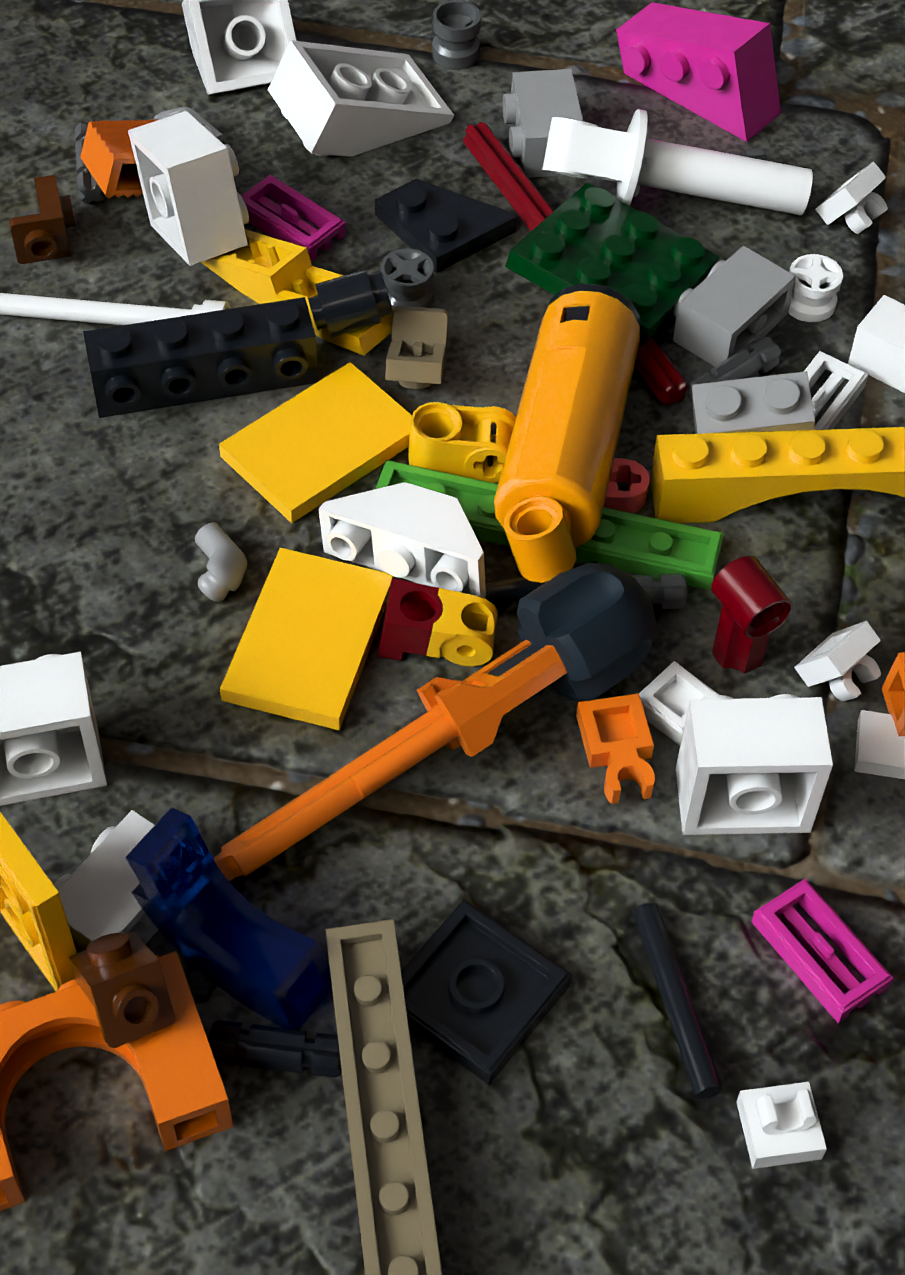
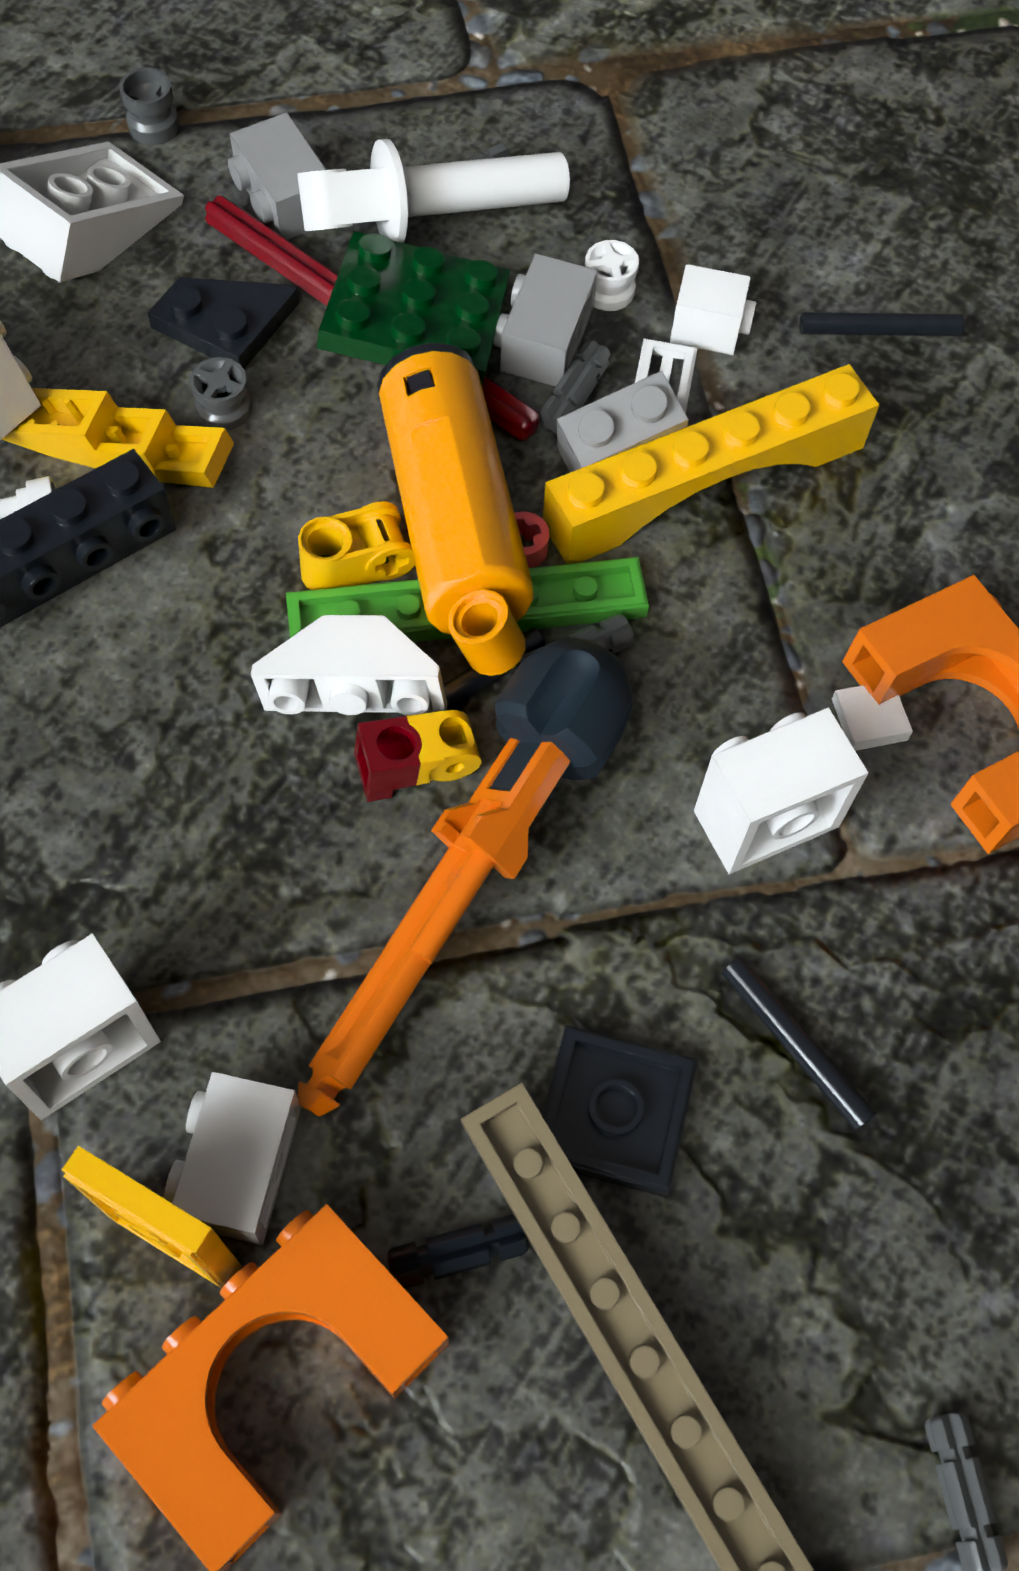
camera: 25 degrees left, 10 degrees up
(124, 987) = (295, 1269): reddish brown bracket -> none
(220, 931) = (362, 1160): clear blue arch -> none
(225, 564) = (176, 762): light grey arm -> none
(283, 220) = (61, 365): dark pink tile -> none
(307, 639) = (292, 810): yellow tile -> none
(319, 442) = (209, 595): yellow tile -> none
(350, 302) = (183, 438): black brick -> none
(417, 346) = (264, 461): dark tan bracket -> none
(620, 738) = (635, 803): orange plate -> none
(668, 699) = (668, 745): white tile -> none
(706, 64) = (409, 68): dark pink wedge -> none
(750, 611) = (708, 636): dark red piece -> none
(781, 1125) = (940, 1126): white tile -> none
(802, 963) = (892, 961): dark pink tile -> none
(838, 657) = (797, 647): white tile -> none
(855, 199) = (609, 170): white tile -> none

